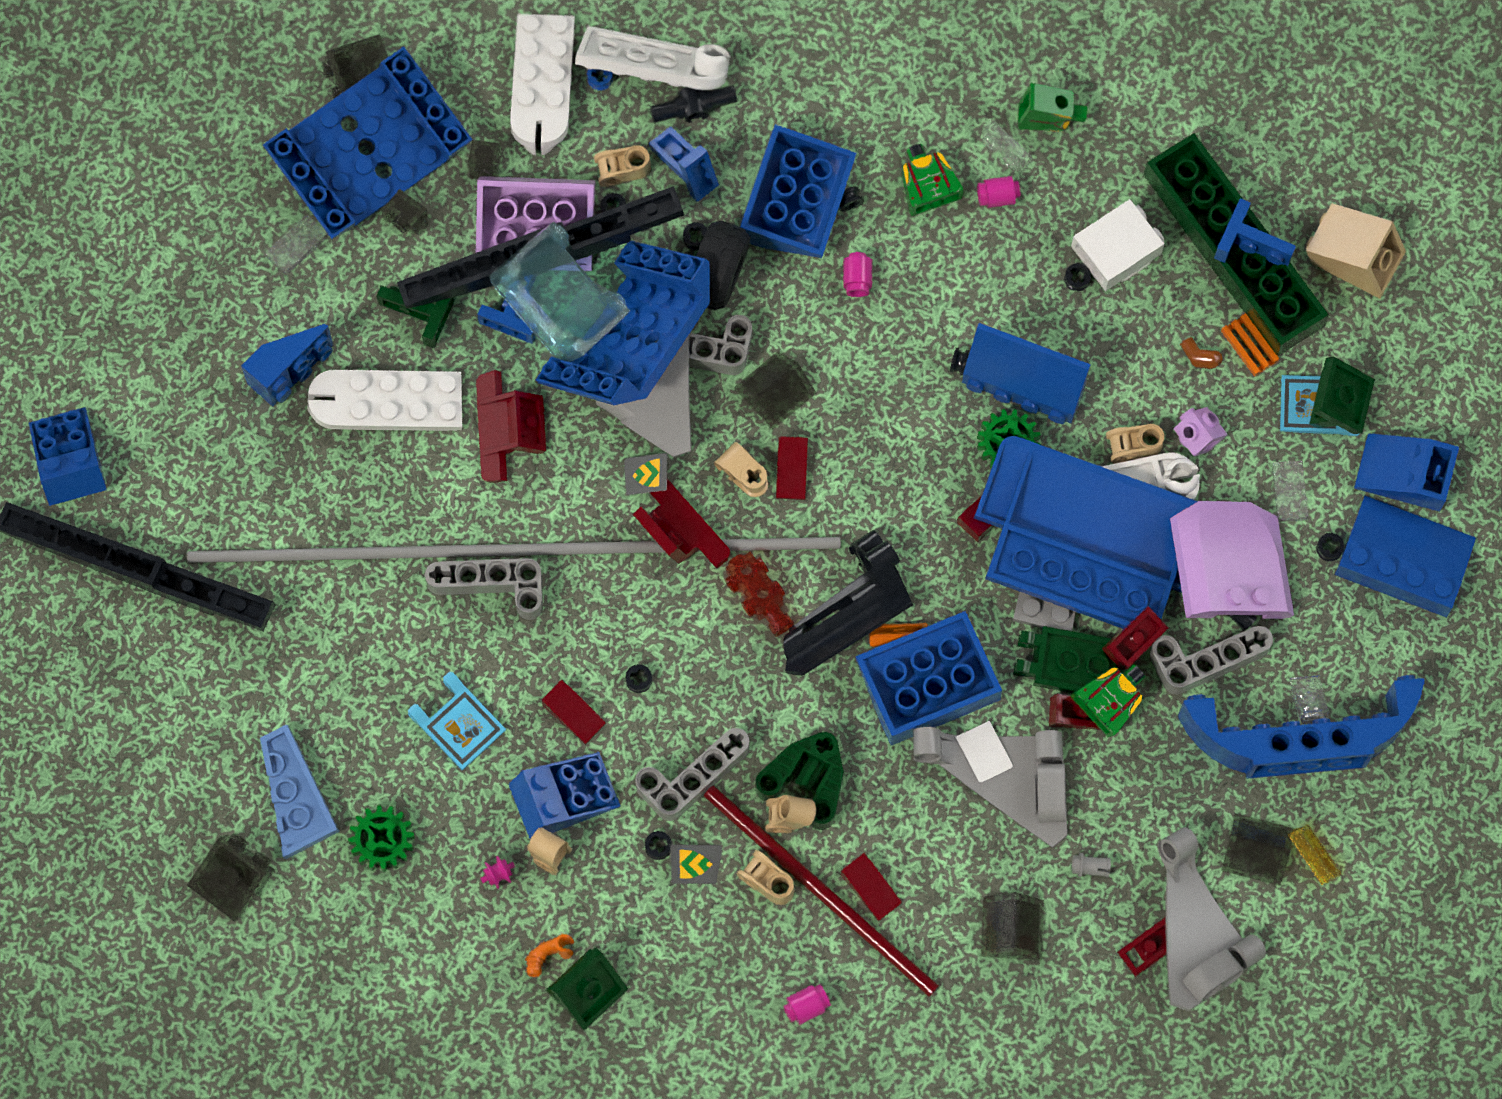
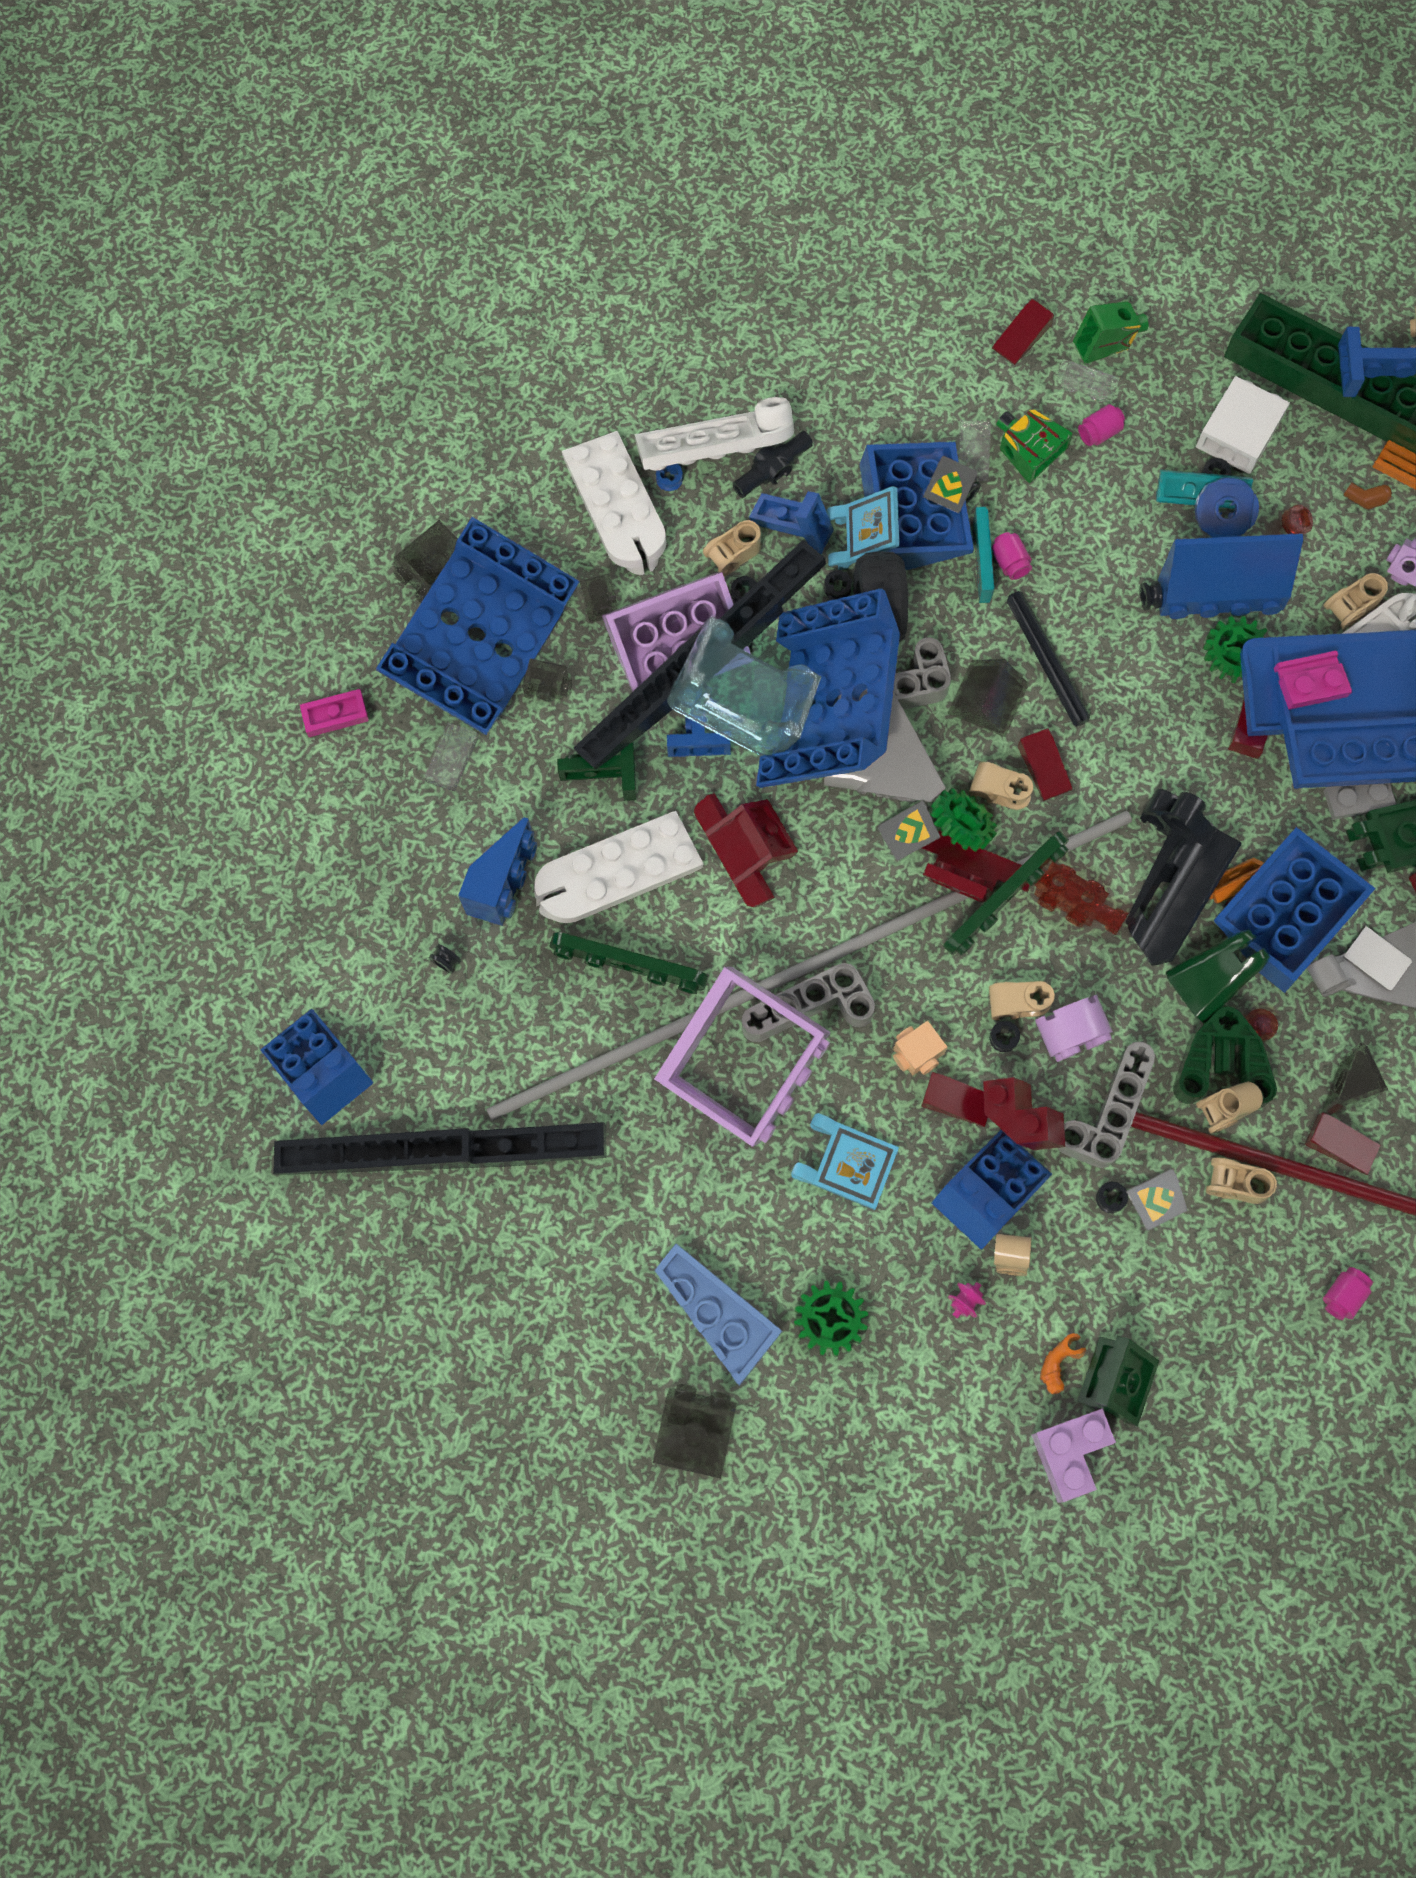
camera: 20 degrees left, 0 degrees up
(211, 413) = (445, 958): none -> black bush
(216, 164) = (334, 713): none -> dark pink plate
(379, 499) = (656, 970): none -> dark green piece
(384, 561) = (695, 1031): none -> lavender window
(515, 1017) = (1063, 1449): none -> lavender brick
(561, 657) = (918, 1049): none -> light nougat brick
(609, 742) = (1010, 1108): none -> dark red brick
(662, 653) = (1016, 1000): none -> tan piece
(694, 484) = (963, 819): none -> green gear
(695, 694) = (1073, 1027): none -> lavender brick
(716, 551) = (1028, 873): none -> dark green piece
(741, 198) = (869, 526): none -> medium azure flag
(831, 189) = (950, 484): none -> dark grey sticker
(832, 703) = (1216, 974): none -> dark green piece
(833, 263) = (983, 554): none -> teal tile
(843, 377) = (1048, 659): none -> black axle
(856, 763) = (1263, 1023): none -> tile
(875, 166) = (975, 447): none -> clear plate
(897, 842) = (1355, 1082): none -> clear smoke slope
(976, 77) = (1024, 331): none -> dark red slope
(1046, 493) = (1312, 680): none -> dark pink plate
(1056, 287) = (1184, 487): none -> teal tile
(1058, 297) = (1214, 495): none -> blue plate
(1124, 350) = (1297, 520): none -> clear red tile

